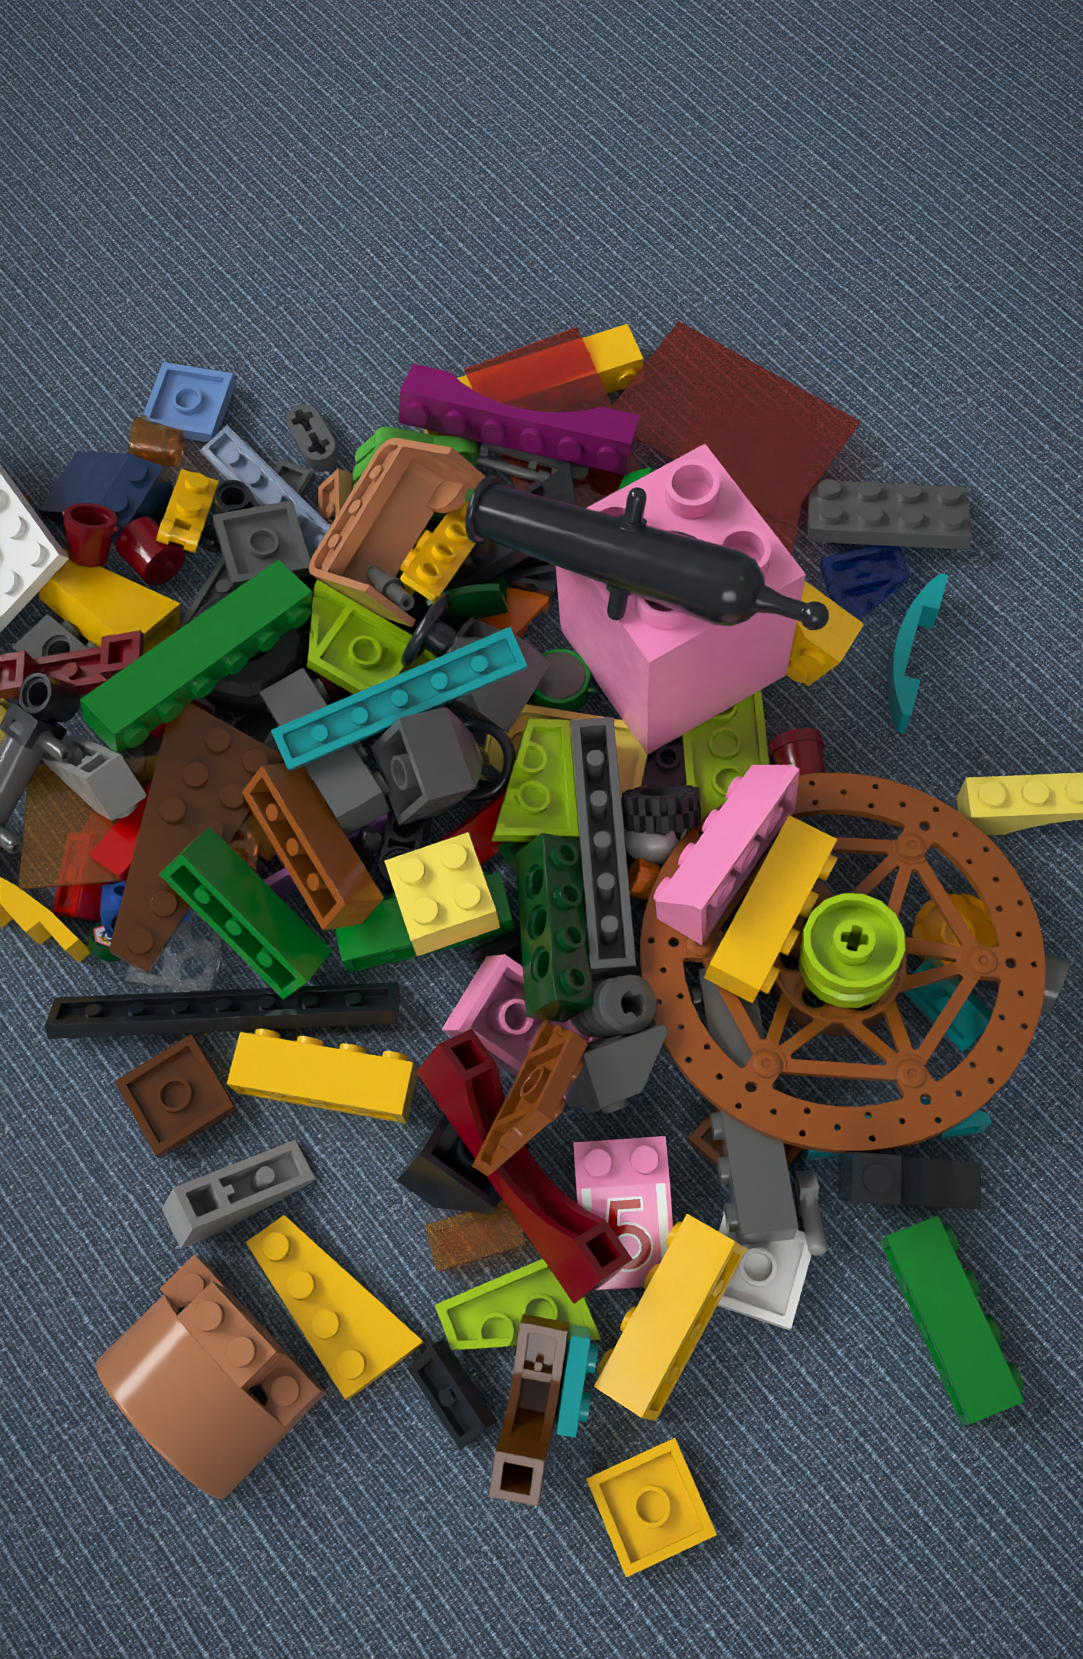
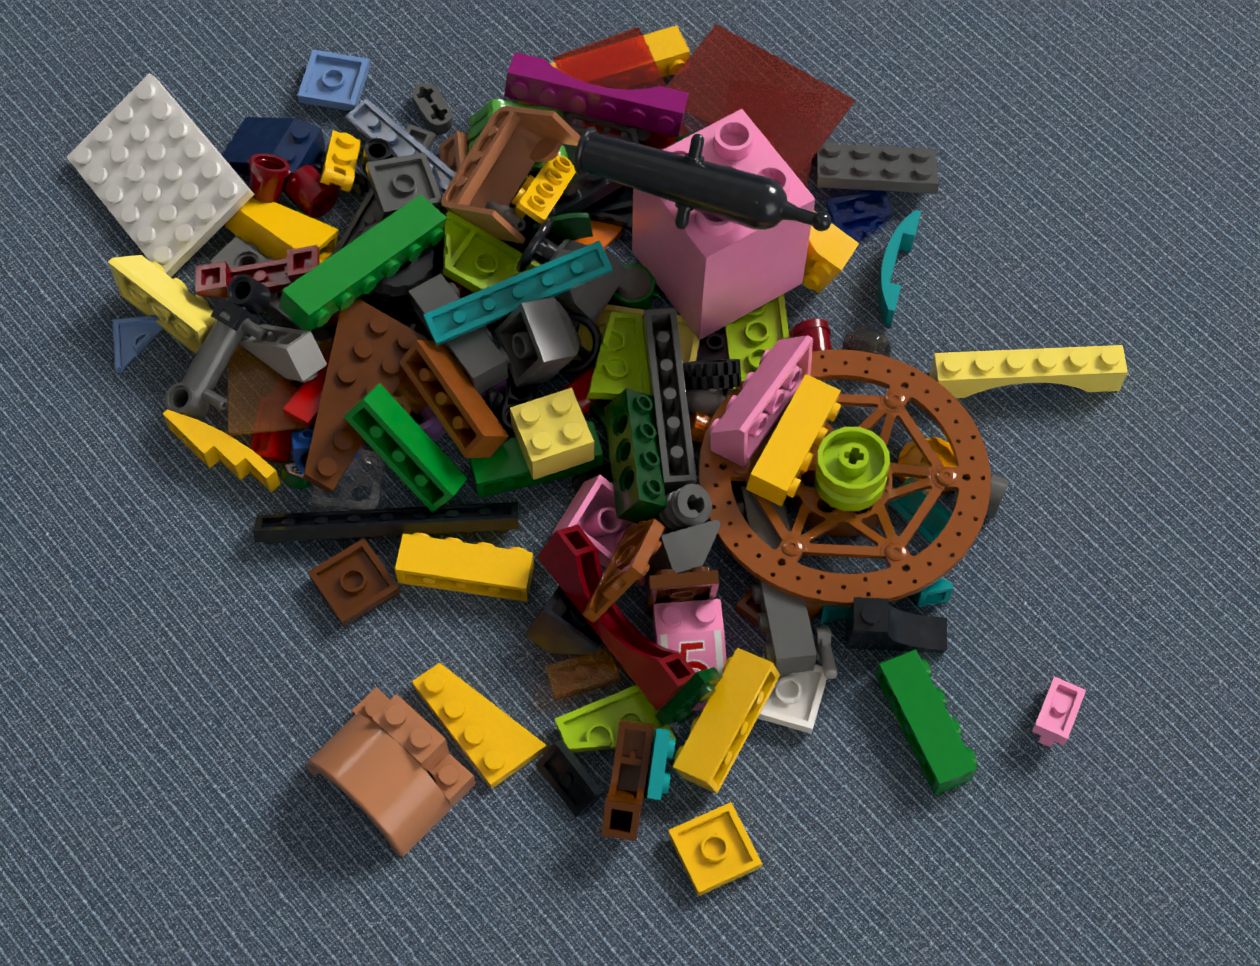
camera: 10 degrees left, 5 degrees down
(155, 442) = (311, 109): clear orange piece -> none
(235, 1193) = (401, 647): light grey slope -> none
(630, 1277) = (695, 691): none -> dark green plate
(632, 1123) = (680, 587): none -> reddish brown plate
(873, 758) = (867, 340): none -> clear smoke head

